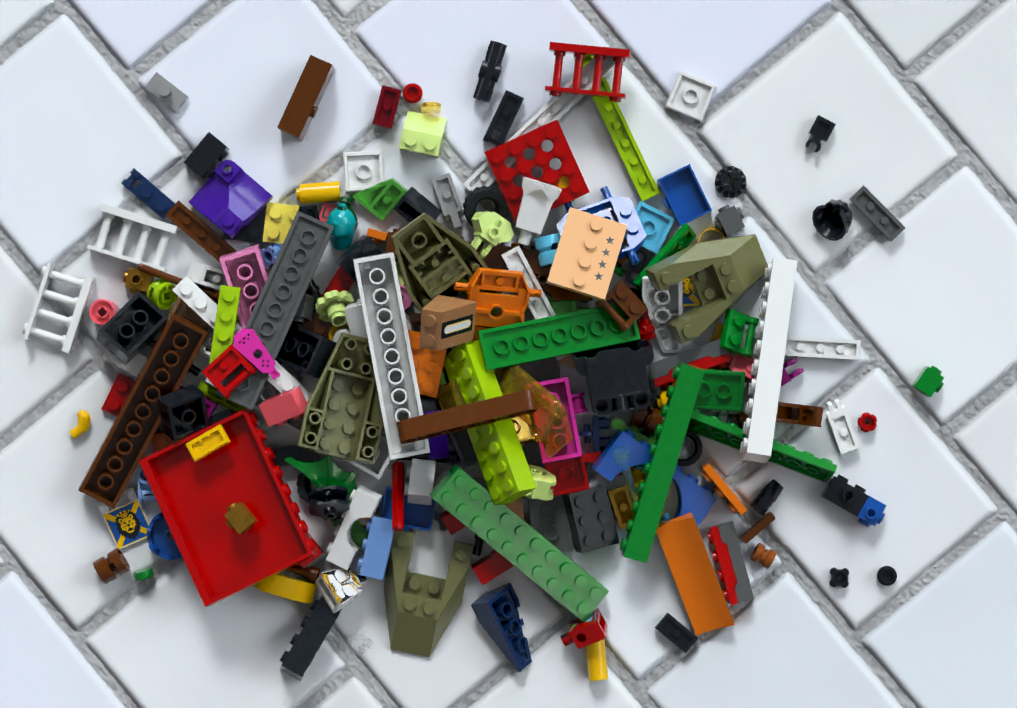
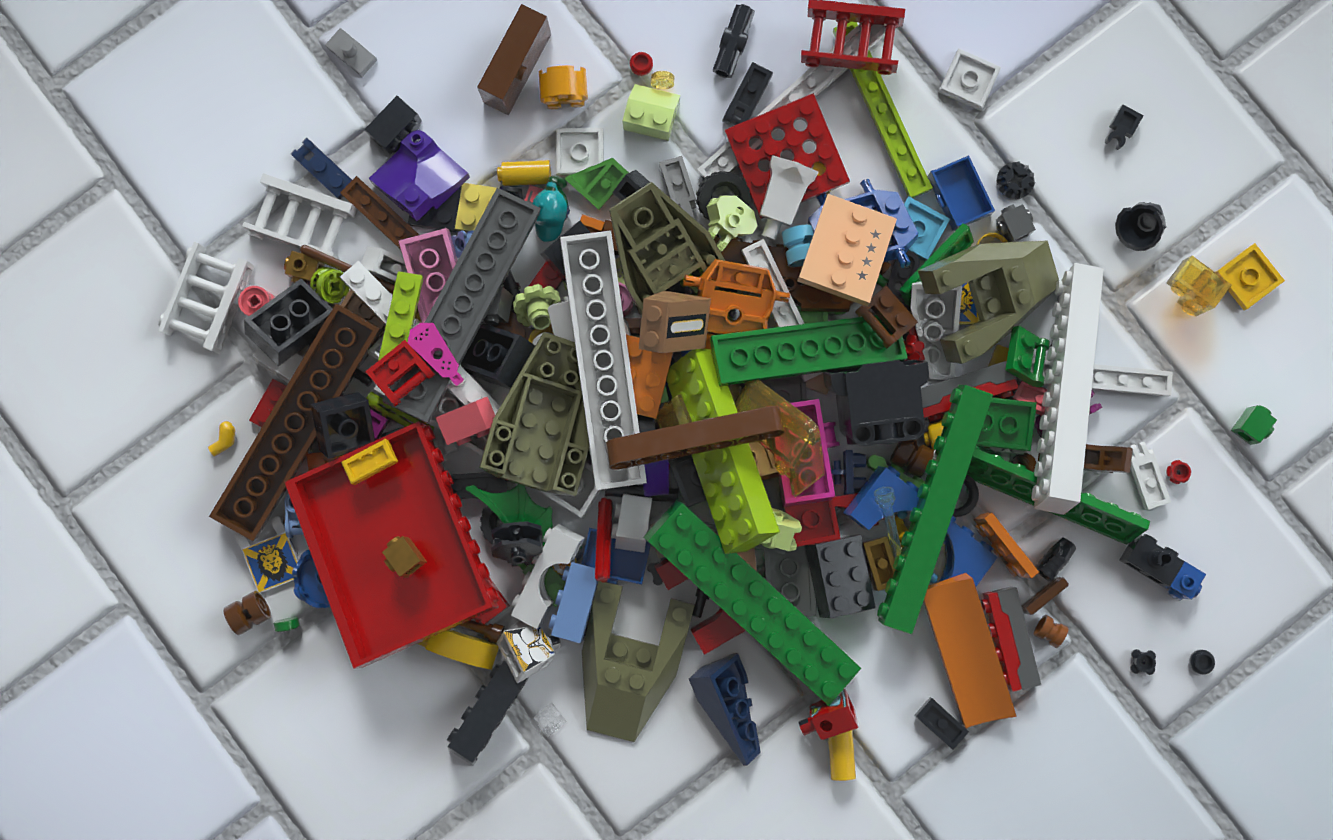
camera: 10 degrees right, 5 degrees down
(348, 118) = (563, 86): none -> light orange brick
(387, 107) = (610, 77): dark red plate -> none
(877, 213) = (1192, 223): dark grey plate -> none
(877, 269) = (1198, 286): none -> clear yellow brick
(925, 257) = (1250, 276): none -> yellow plate

